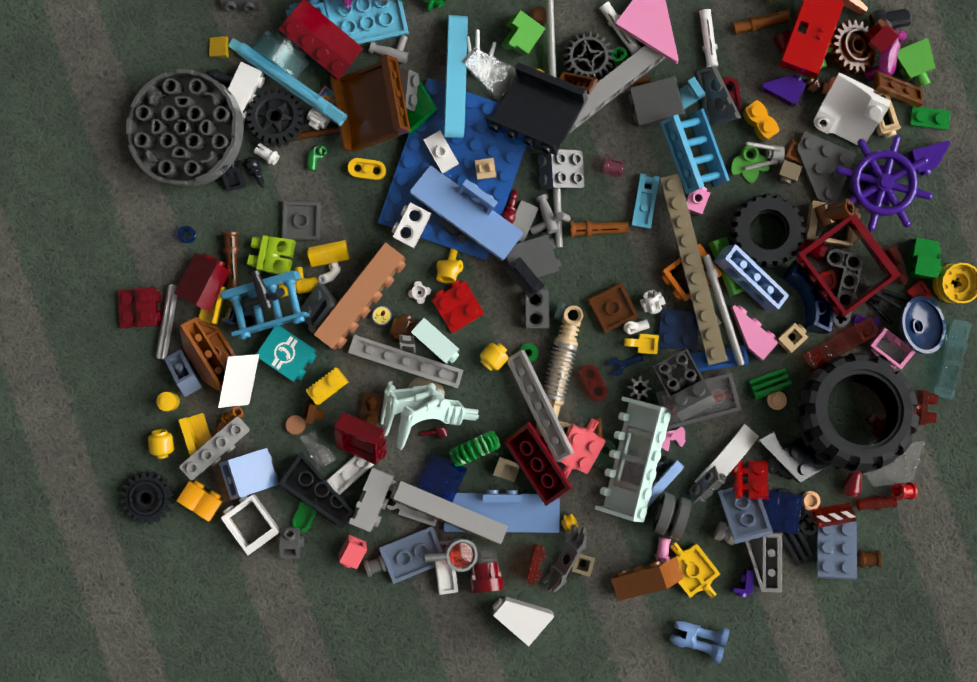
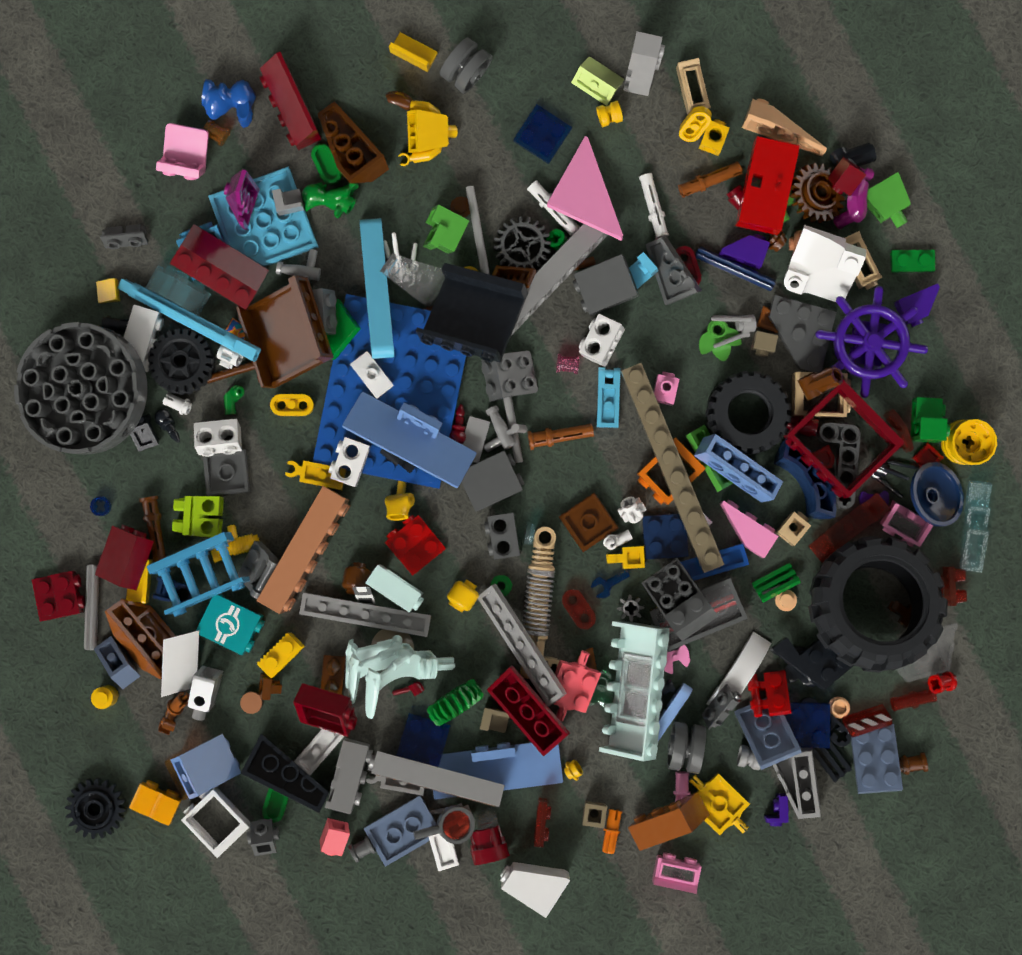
camera: 10 degrees left, 0 degrees up
(160, 443) = (103, 745): yellow head -> none
(195, 432) = (141, 729): yellow panel -> none
(211, 451) = (162, 744): light grey bracket -> none
(258, 402) = (204, 691): none -> light grey torso
(263, 297) = (194, 566): black piece -> none
(299, 183) = (217, 432): none -> white brick
(319, 453) = (281, 731): clear animal -> none
(328, 253) = (261, 505): yellow panel -> none
(328, 277) = (267, 530): white arm -> none
(380, 233) = (316, 474): none -> yellow plate
(381, 315) = (331, 566): light yellow tile -> none
(414, 292) = (363, 536): white plate -> none
(485, 168) = (424, 387): tan tile -> none
(524, 277) = (484, 503): black hinge -> none
(560, 570) = (569, 824): dark grey piece -> none
(595, 581) = (611, 831): none -> orange axle
(648, 625) = (676, 873): none -> bright pink window
(651, 152) = (606, 341): none -> white brick
(683, 156) = (642, 341): dark azure fence -> none
(712, 274) = (694, 470): light grey bar -> none
(715, 651) = (726, 884): medium blue piece -> none
(757, 116) = (728, 294): light orange brick -> none
(772, 103) = (735, 268): none -> dark blue axle
(852, 484) = (883, 683): dark red cone -> none
(898, 89) = (873, 234): reddish brown tile -> none

